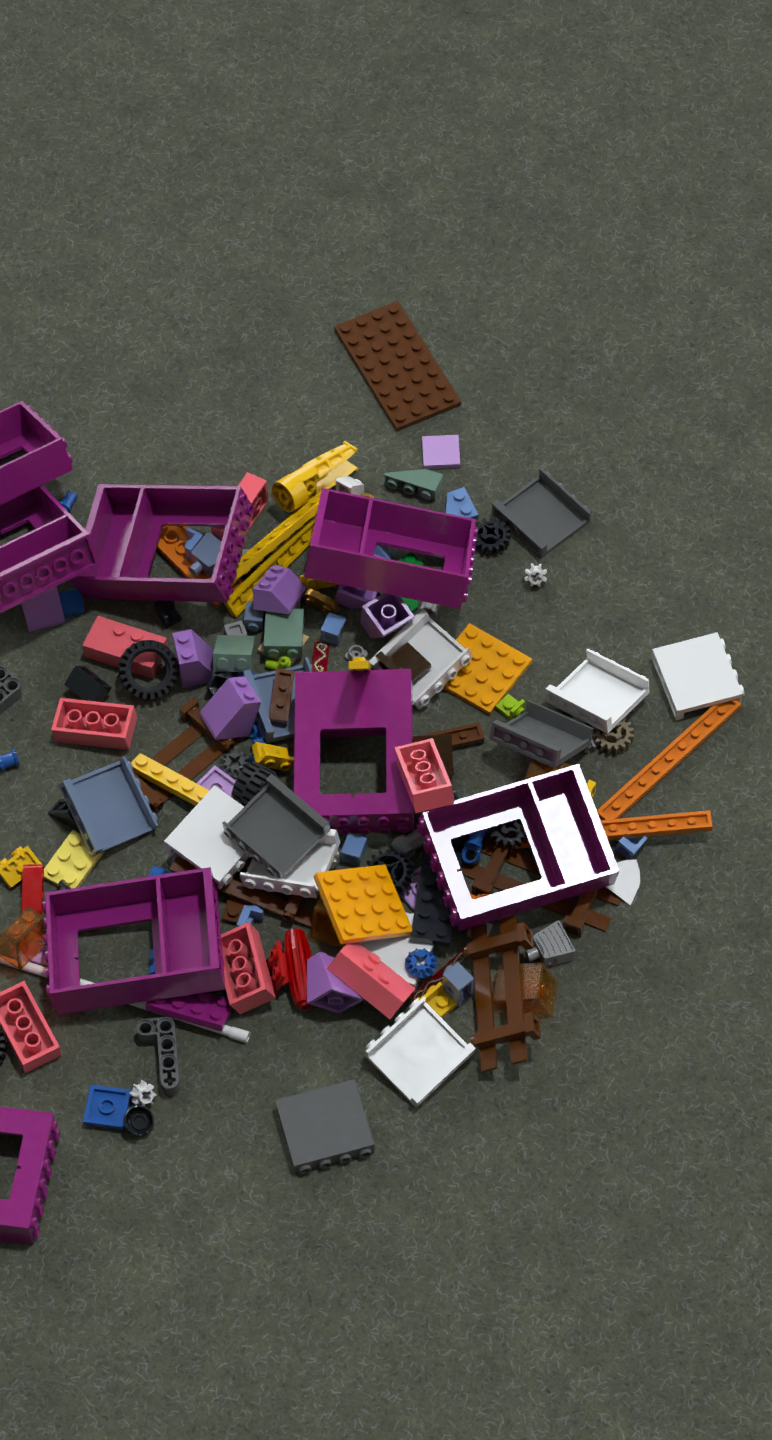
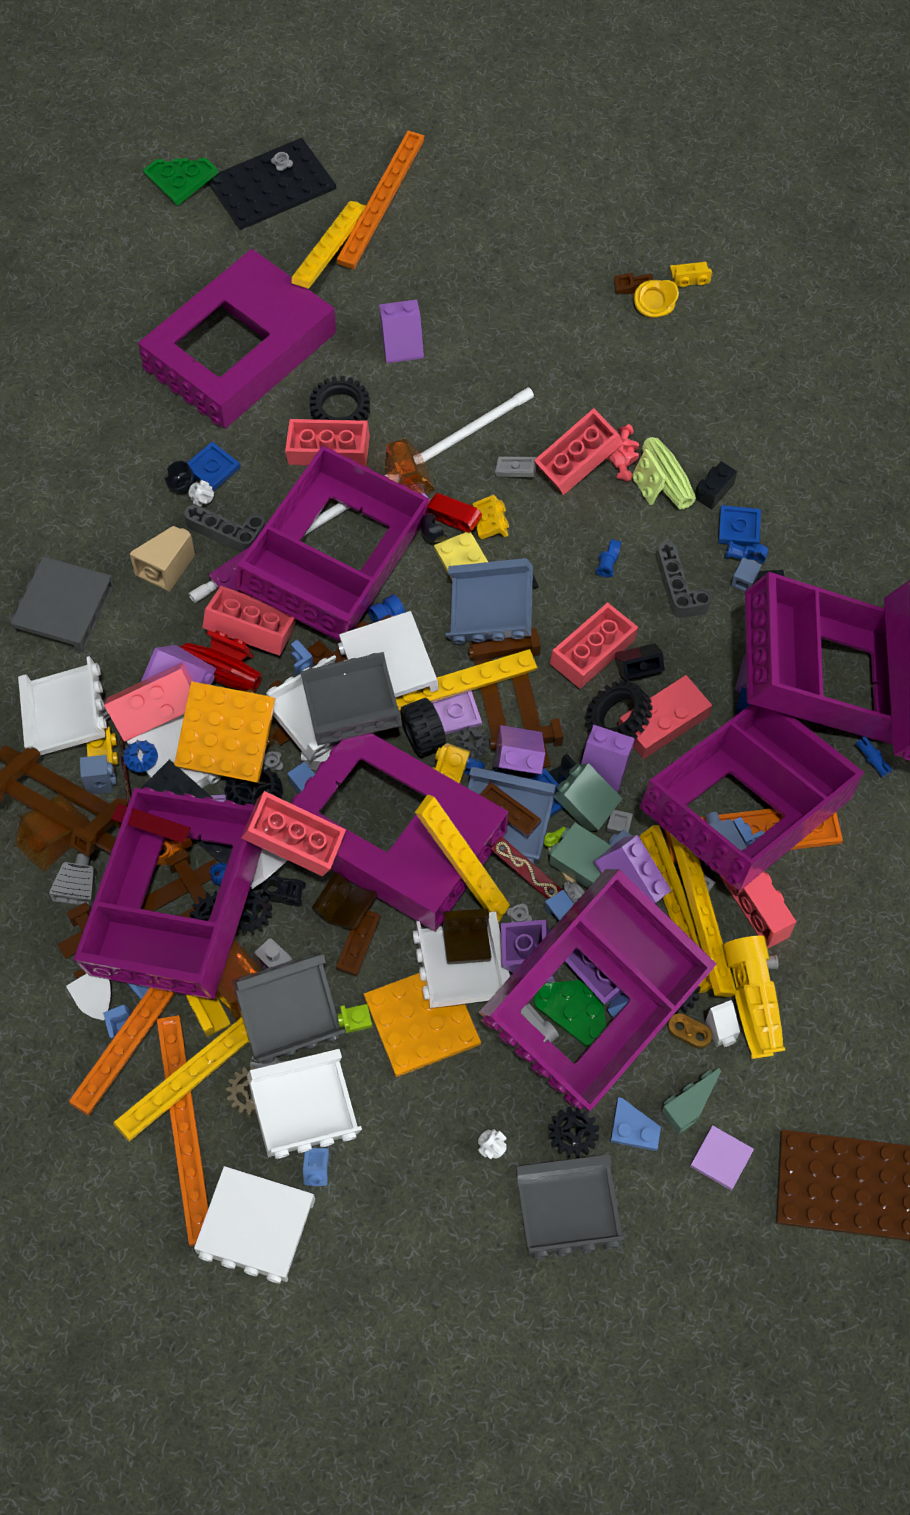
camera: 120 degrees right, 5 degrees up
(228, 1070) = (164, 557): none -> tan slope
(316, 622) = (573, 890): none -> light grey gear
(480, 887) = (152, 823): none -> dark red sticker
(511, 770) = (270, 955): none -> light grey torso
(633, 662) = (316, 1167): none -> medium blue bracket
(641, 771) = (182, 1081): none -> yellow plate

